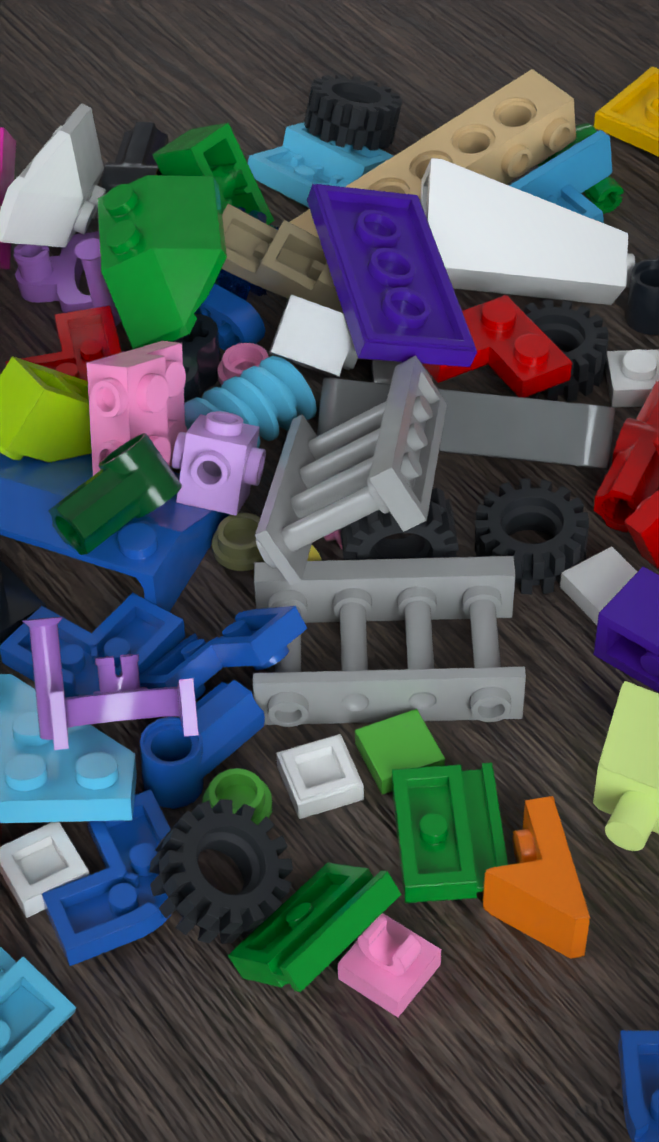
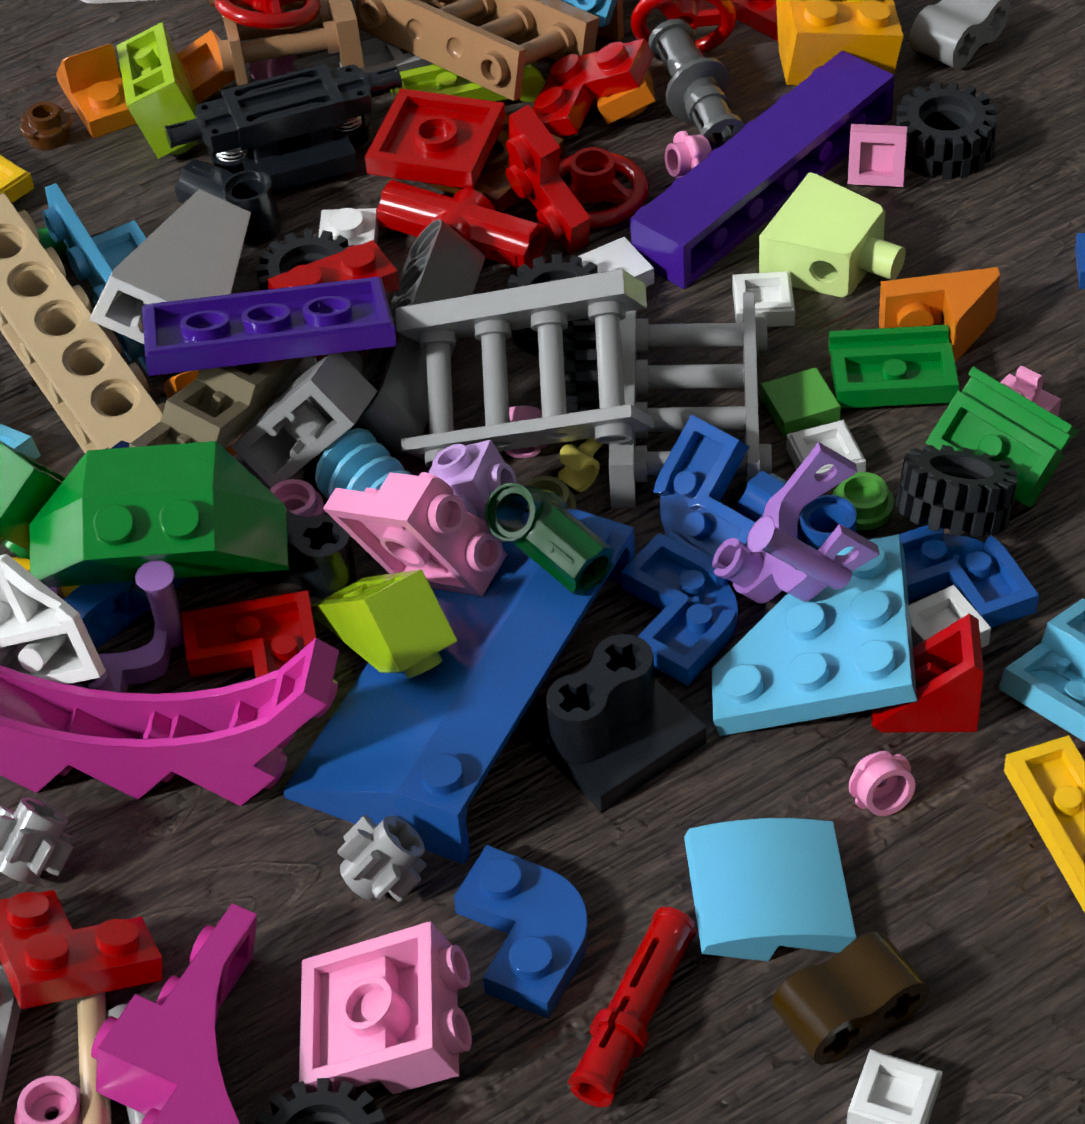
camera: 85 degrees left, 0 degrees up
(570, 719) = (772, 297): none -> white tile

